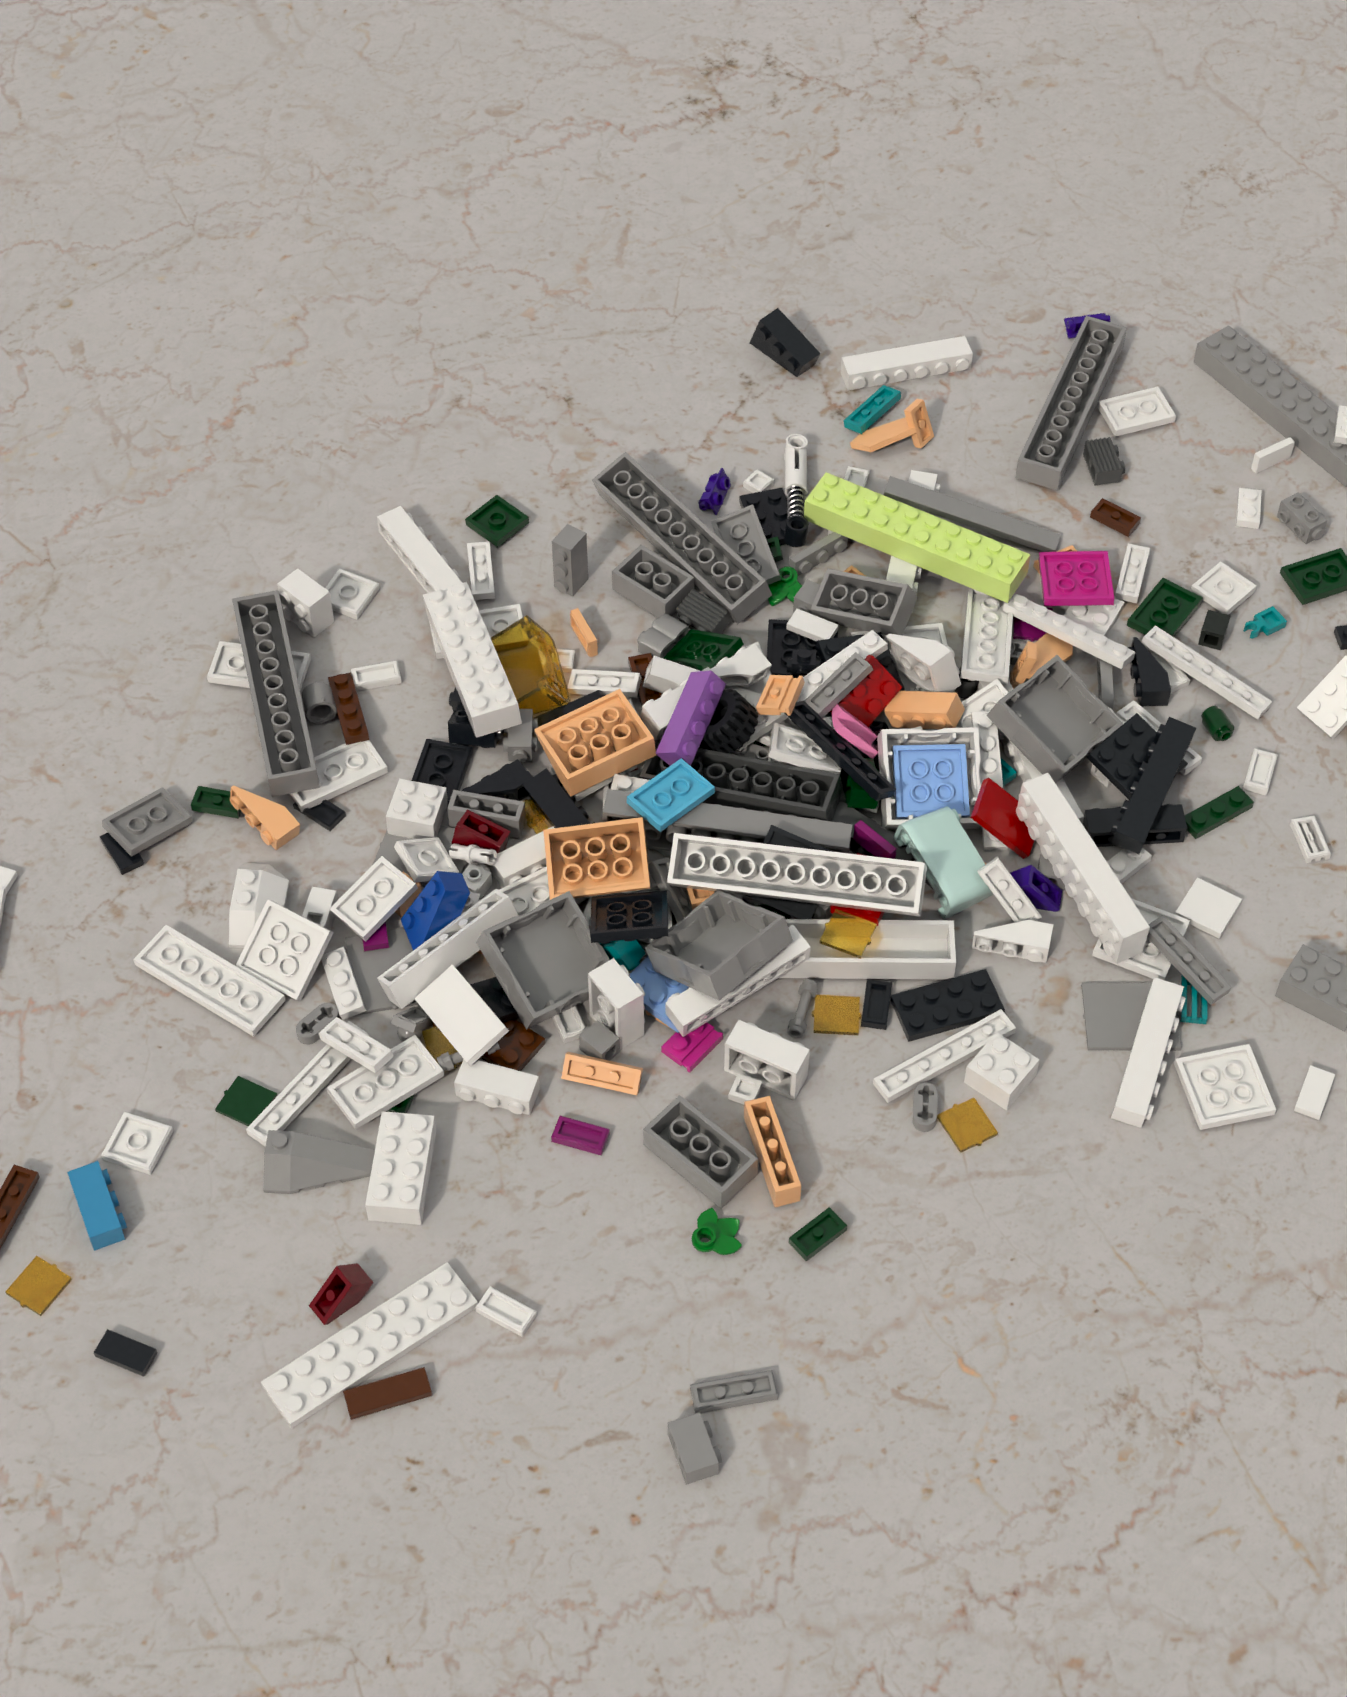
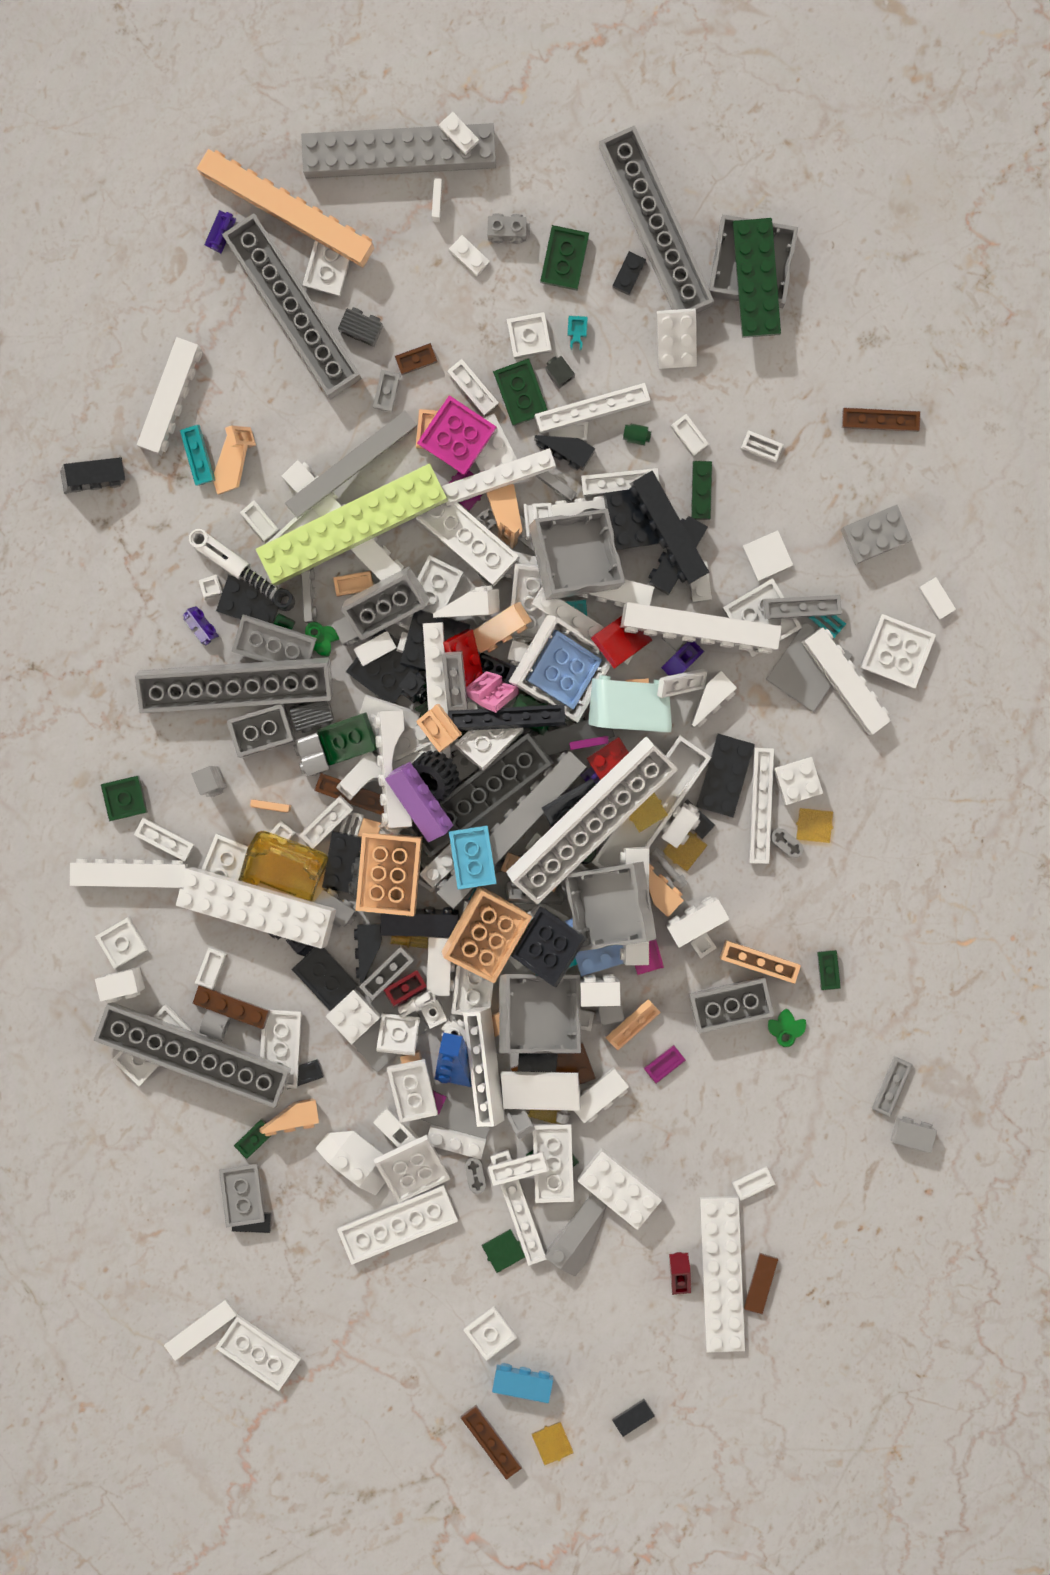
camera: 55 degrees left, 35 degrees up
(771, 1008) = (661, 894): none -> light nougat slope
(859, 981) = (684, 820): none -> white brick
(1064, 511) = (386, 390): none -> light grey plate
(1154, 354) = (285, 207): none -> light nougat brick

